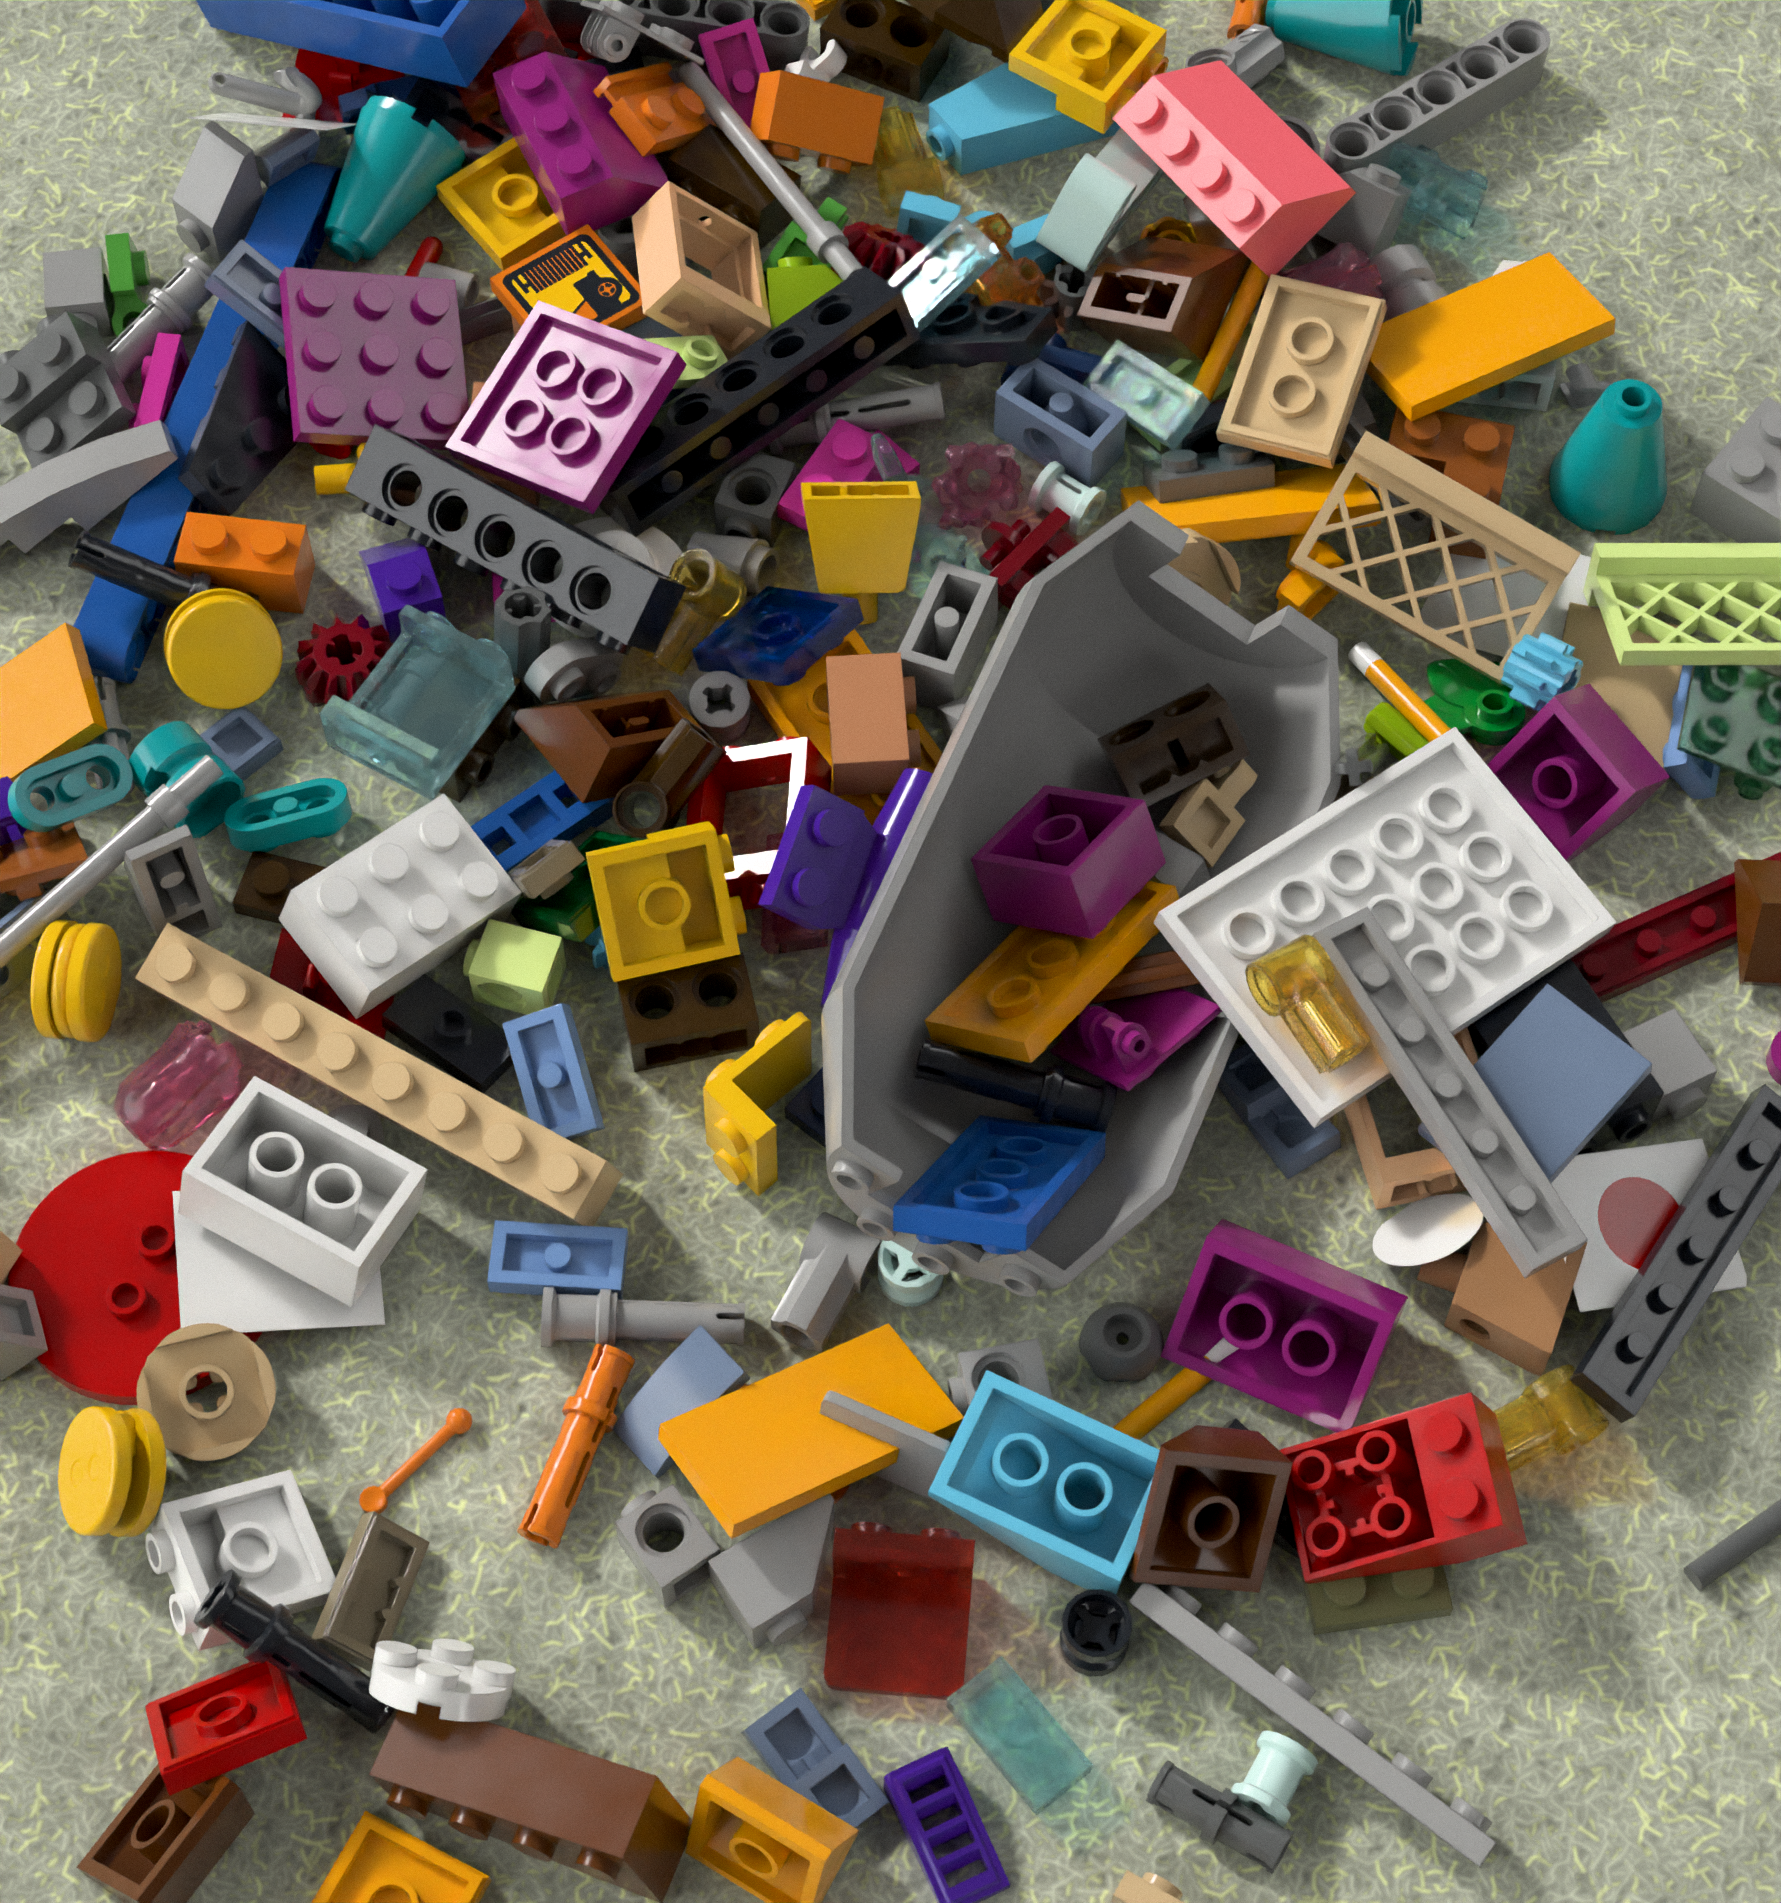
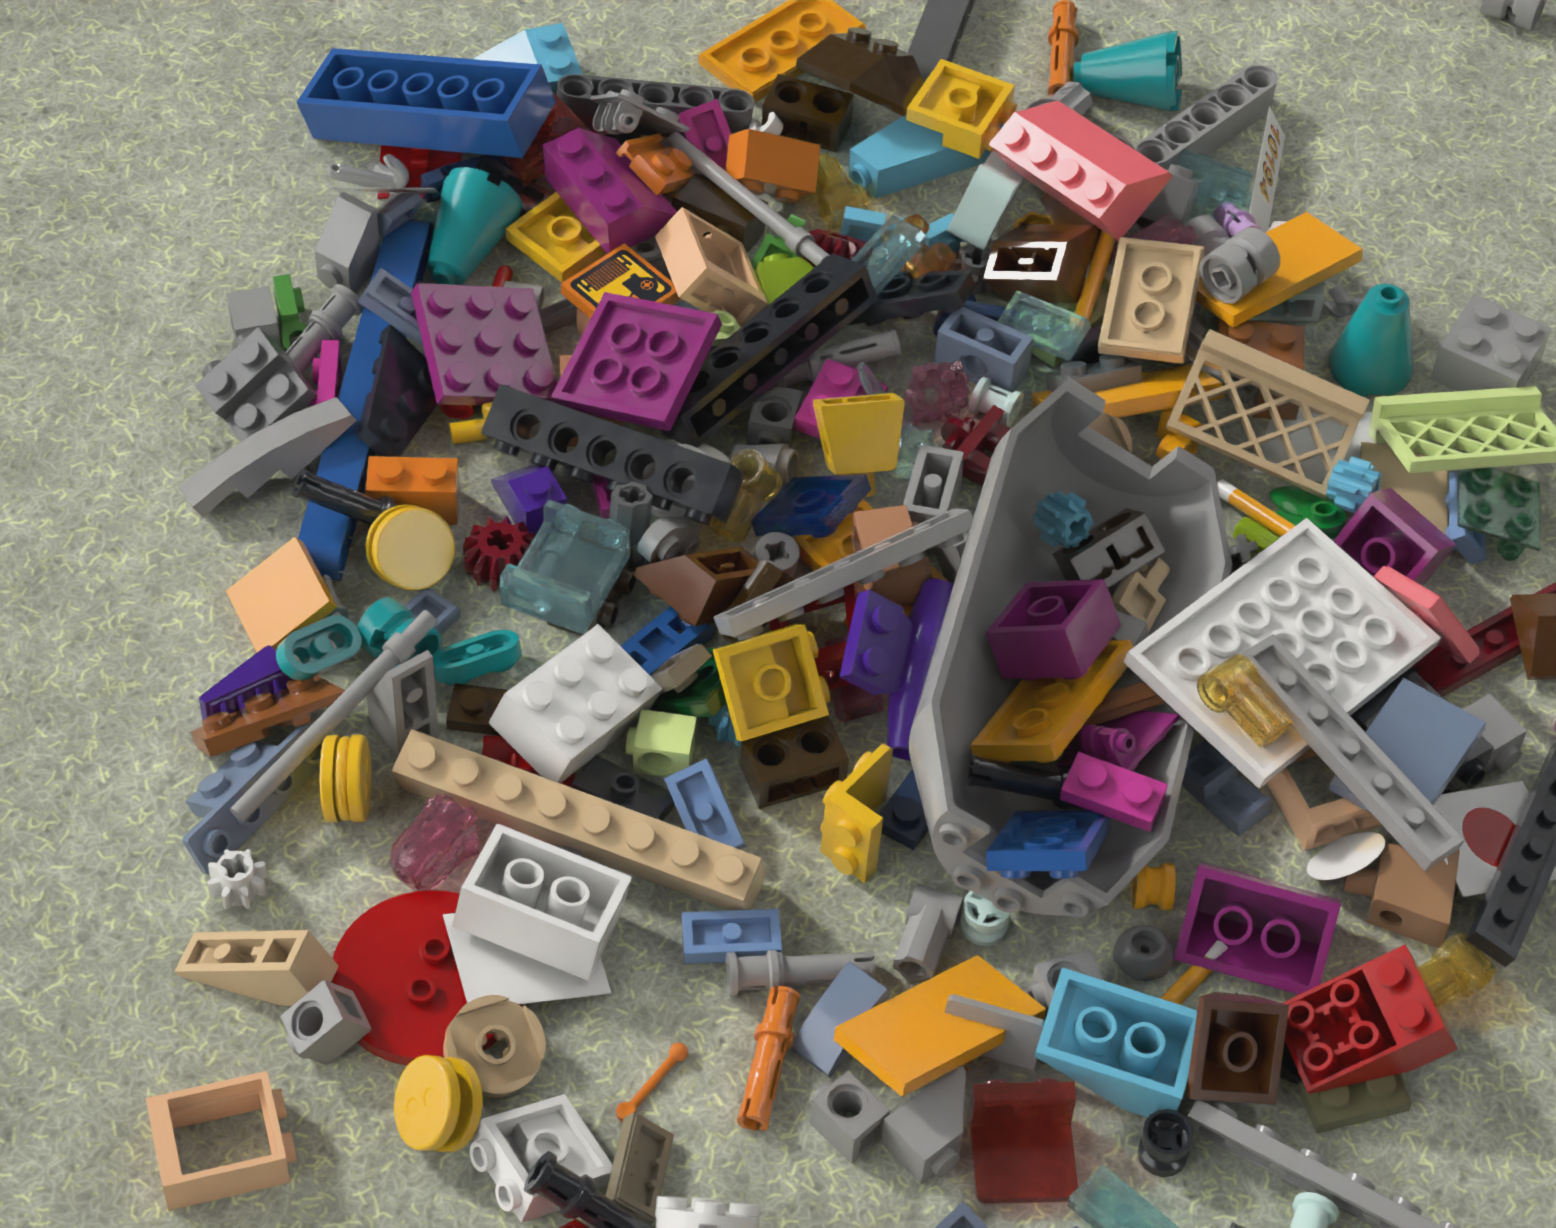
camera: 10 degrees left, 10 degrees down
(767, 762) = (828, 582): none -> light grey plate
(1108, 1113) = (1114, 791): none -> dark pink plate
(1112, 696) = (1063, 519): none -> medium azure gear
(1151, 1248) = (1154, 887): none -> light orange wheel
(1430, 333) = (1239, 265): none -> light grey wheel
(1453, 262) = (1240, 220): none -> lavender pin
(1511, 184) = (1267, 172): none -> white sticker
(1606, 881) = (1431, 611): none -> coral plate

